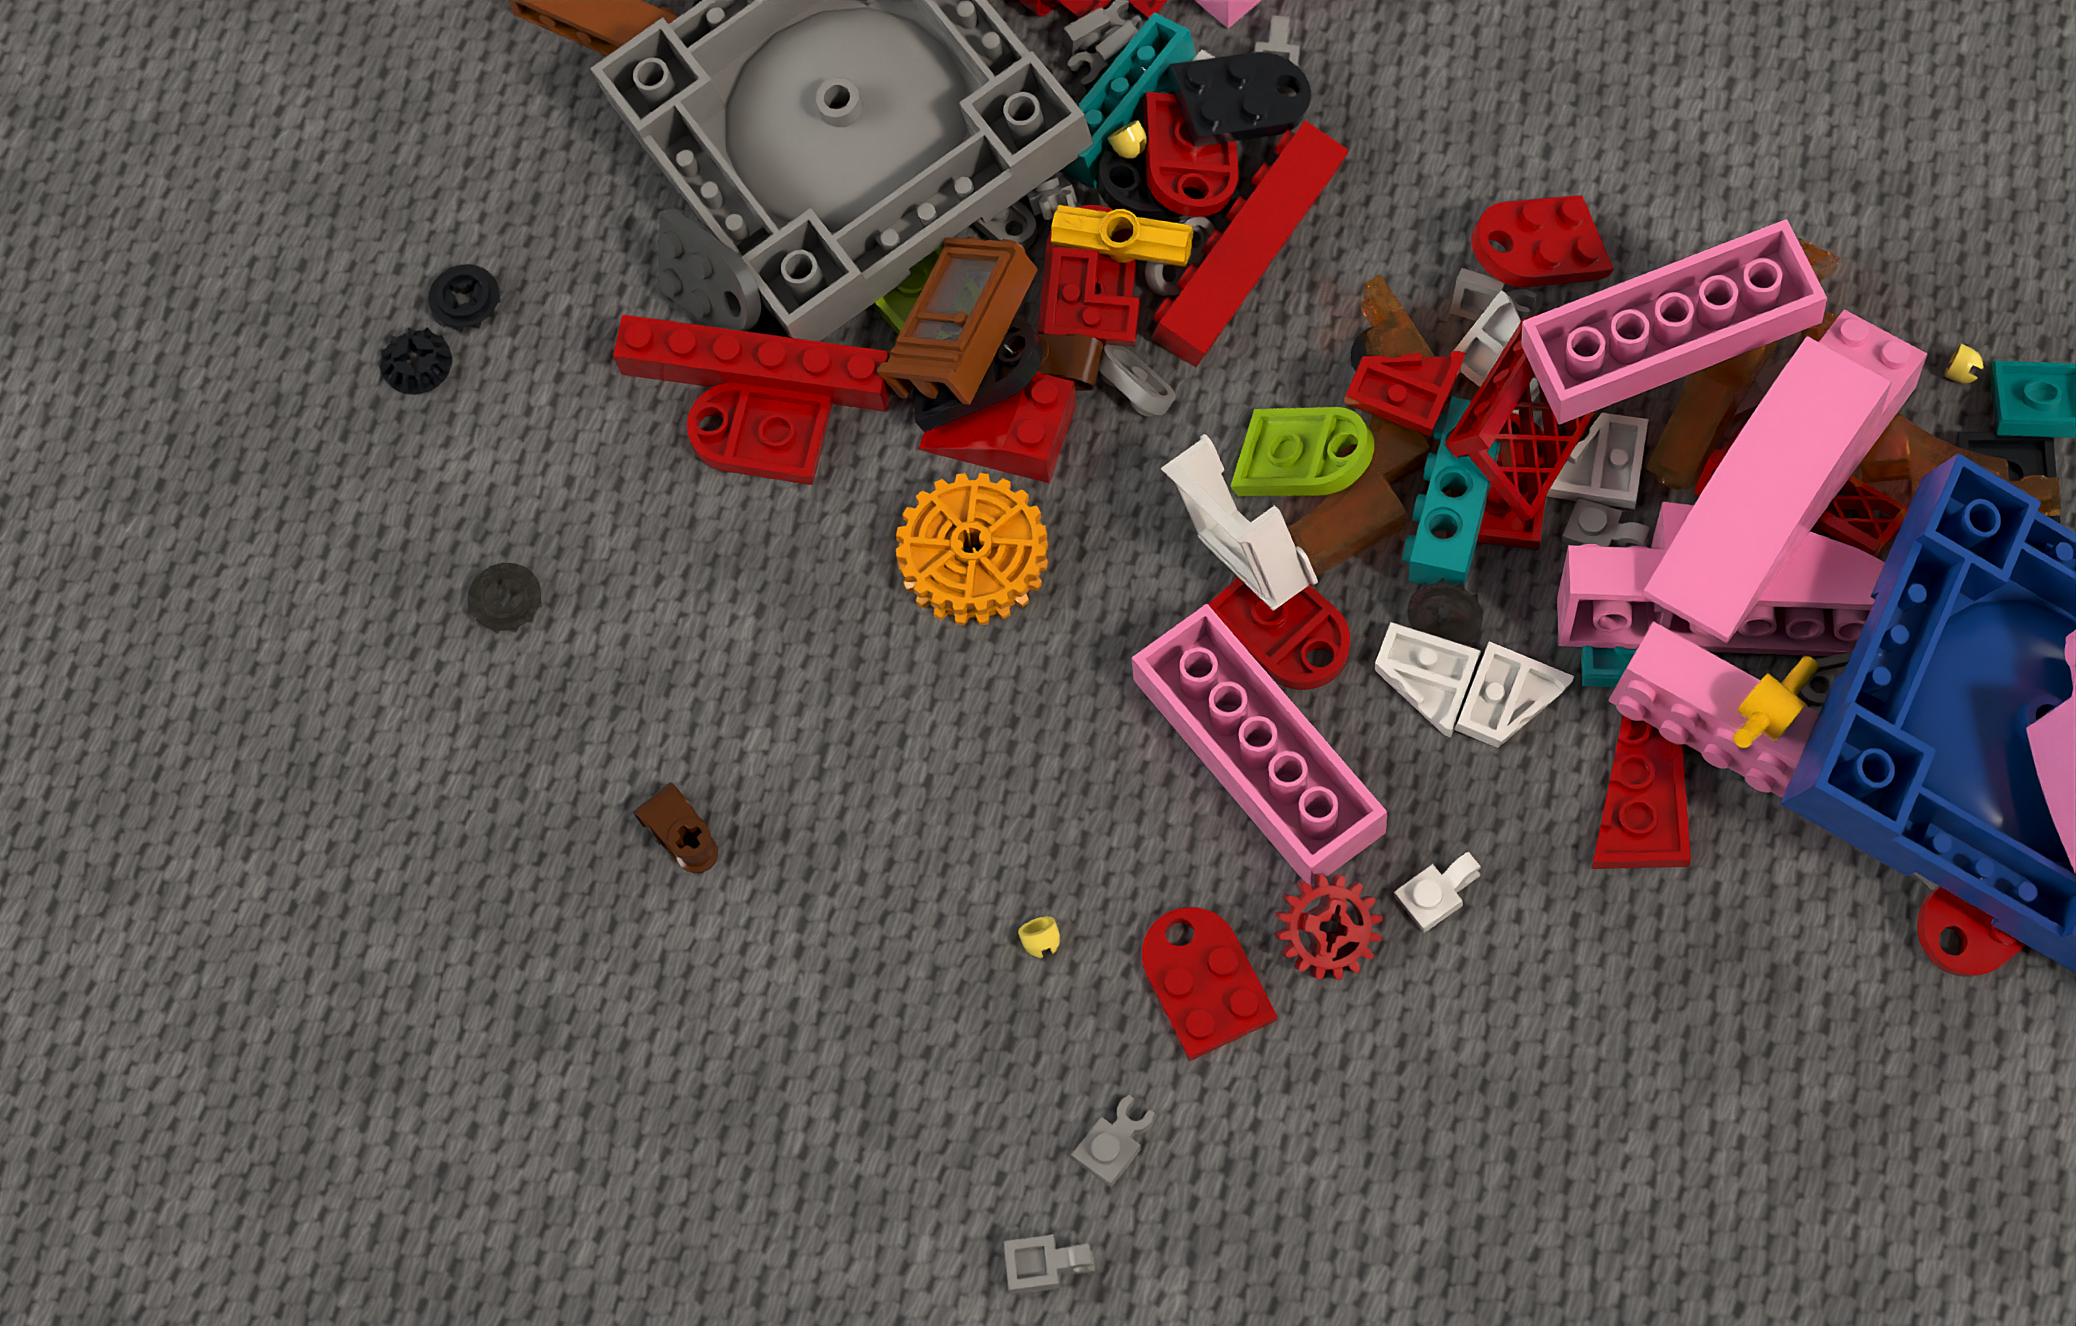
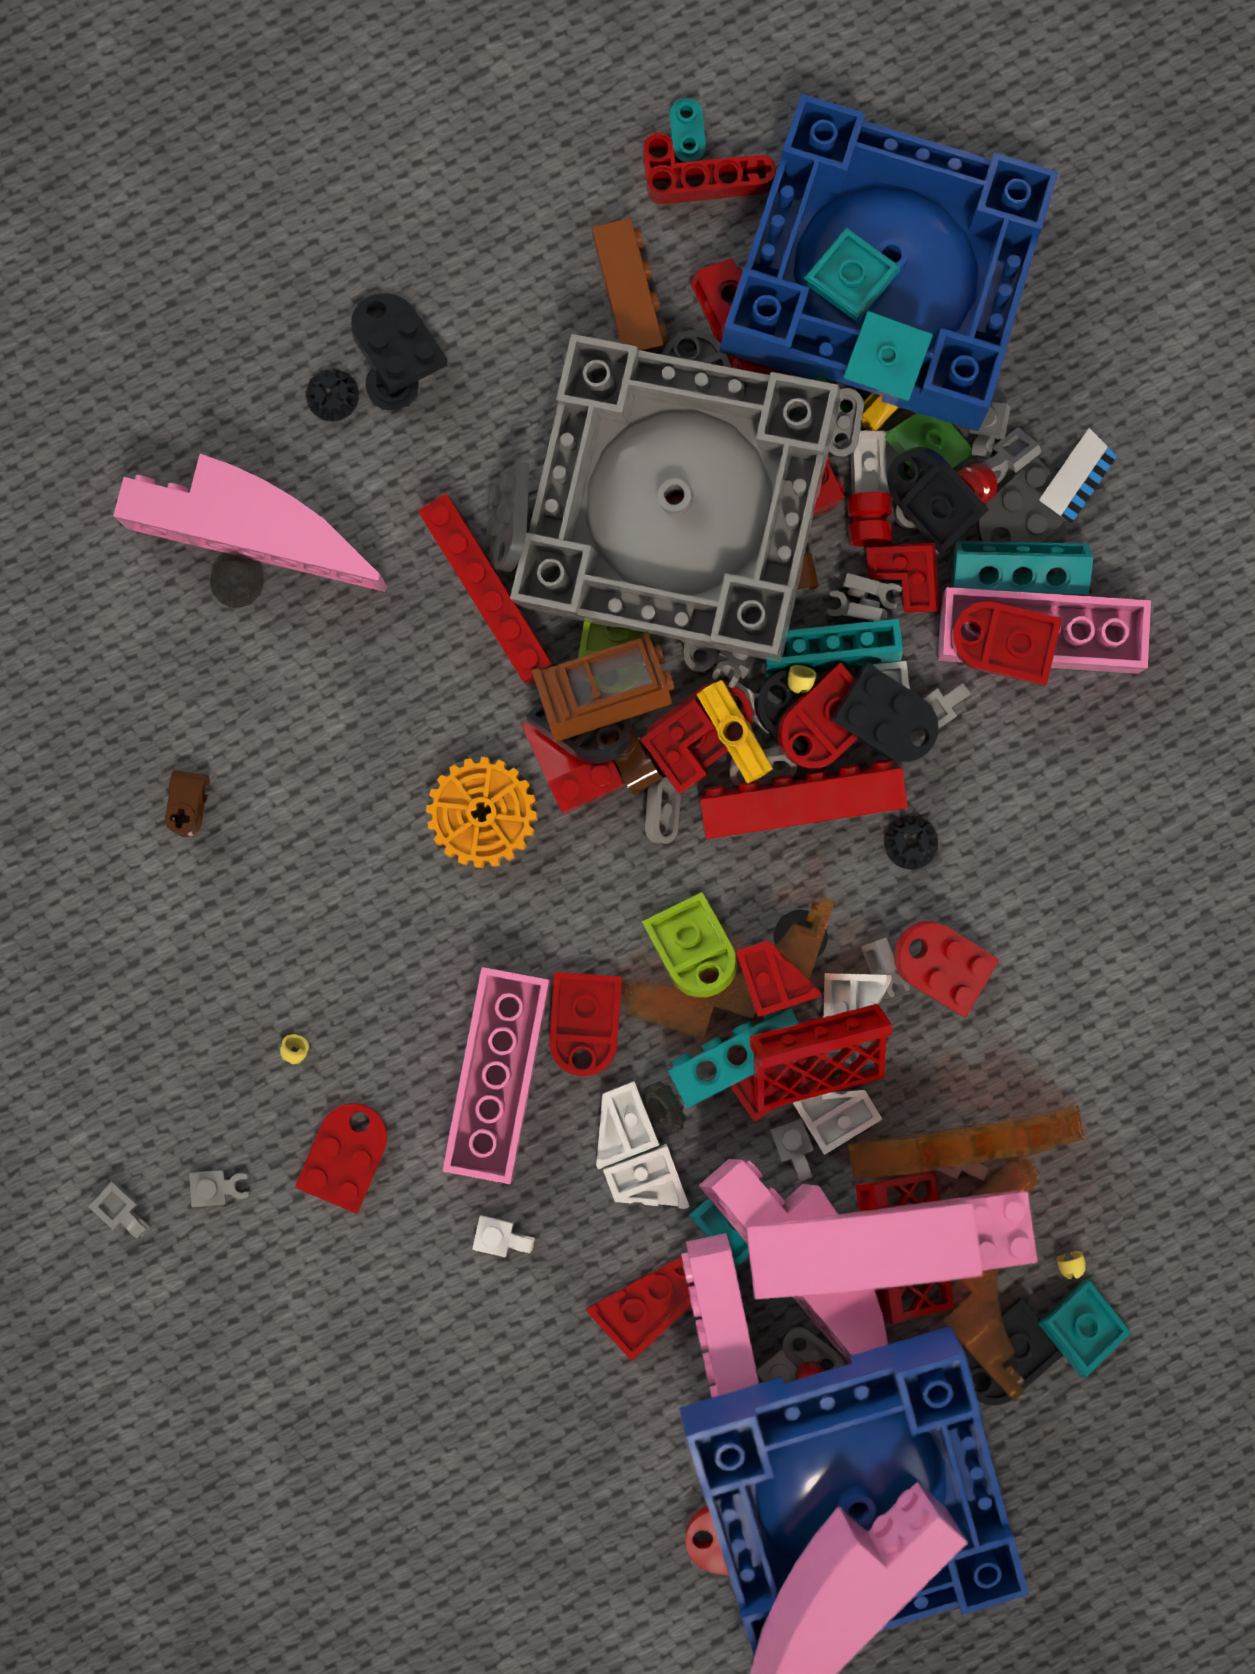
camera: 45 degrees right, 20 degrees up
(427, 256) = (397, 343): none -> black plate
(461, 515) = (243, 517): none -> bright pink slope
(762, 431) = (453, 631): red plate -> none
(1255, 551) = (606, 956): white piece -> none
(1333, 908) = (426, 1201): red gear -> none
(1371, 196) = (895, 842): none -> black gear
(1673, 321) = (927, 1111): bright pink brick -> none
(1773, 704) = (732, 1359): yellow piece -> none

